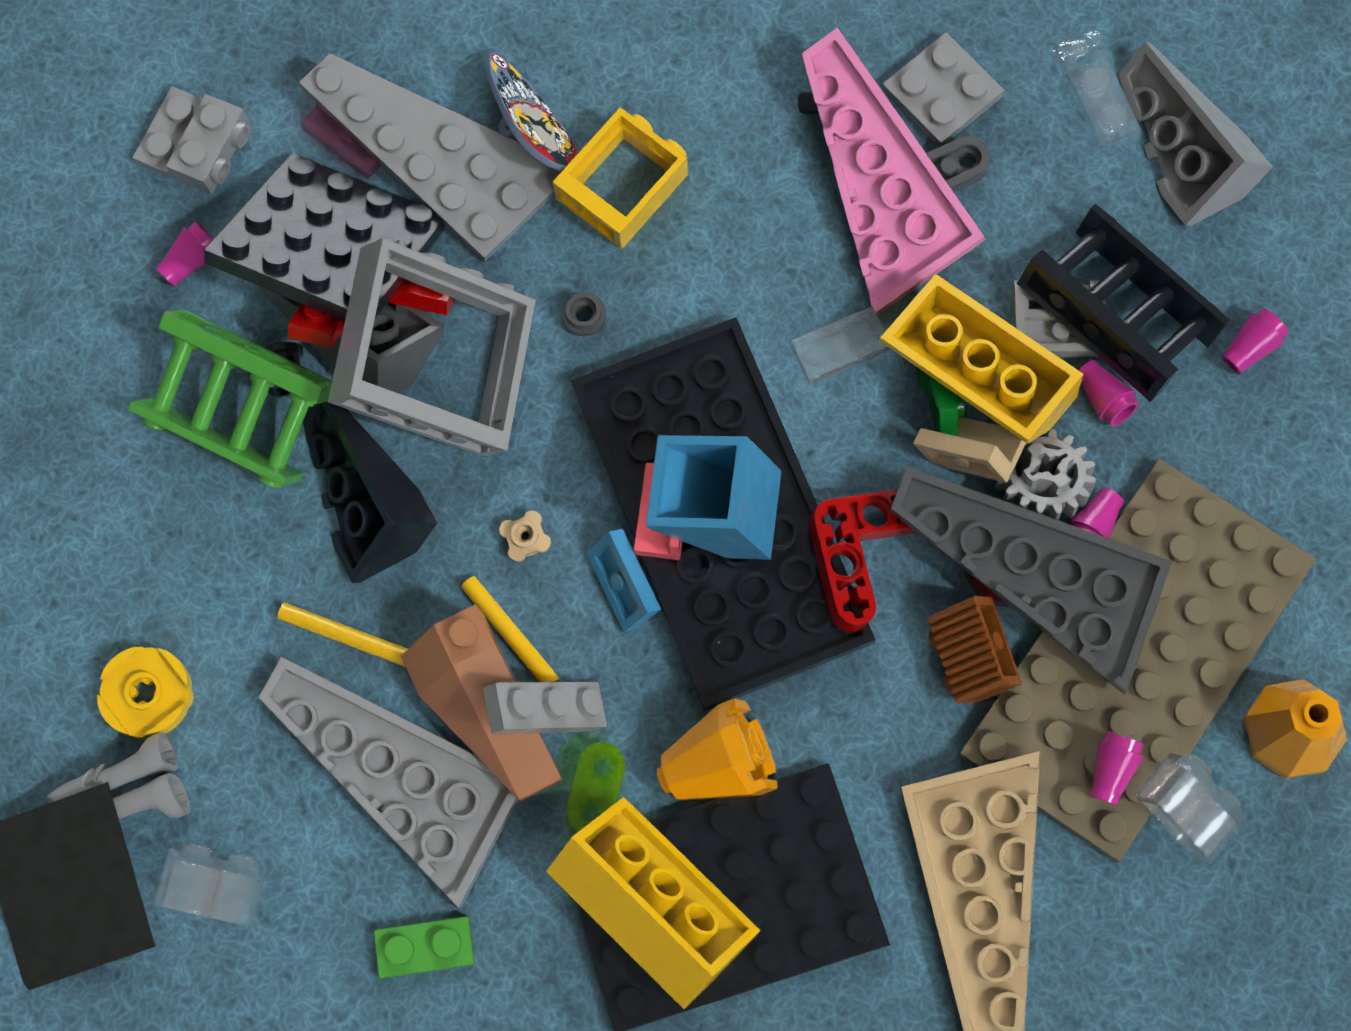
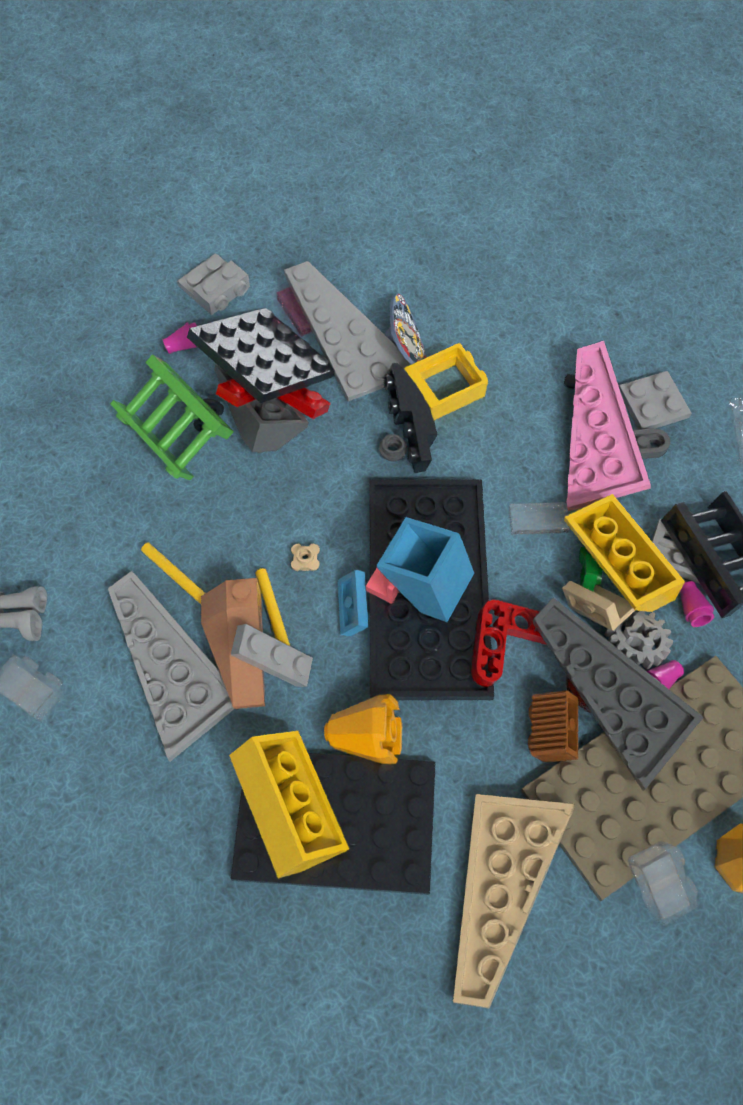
camera: 15 degrees right, 10 degrees down
(150, 666) = (31, 555): yellow plate -> none
(374, 500) = (227, 504): black wedge -> none
(424, 947) = (137, 776): bright green plate -> none
(467, 285) = (267, 459): light grey window -> none
(584, 242) = (413, 412): none -> black slope
(594, 789) = (280, 719): clear neon green plate -> none
(1115, 766) = (621, 834): dark pink cone -> none

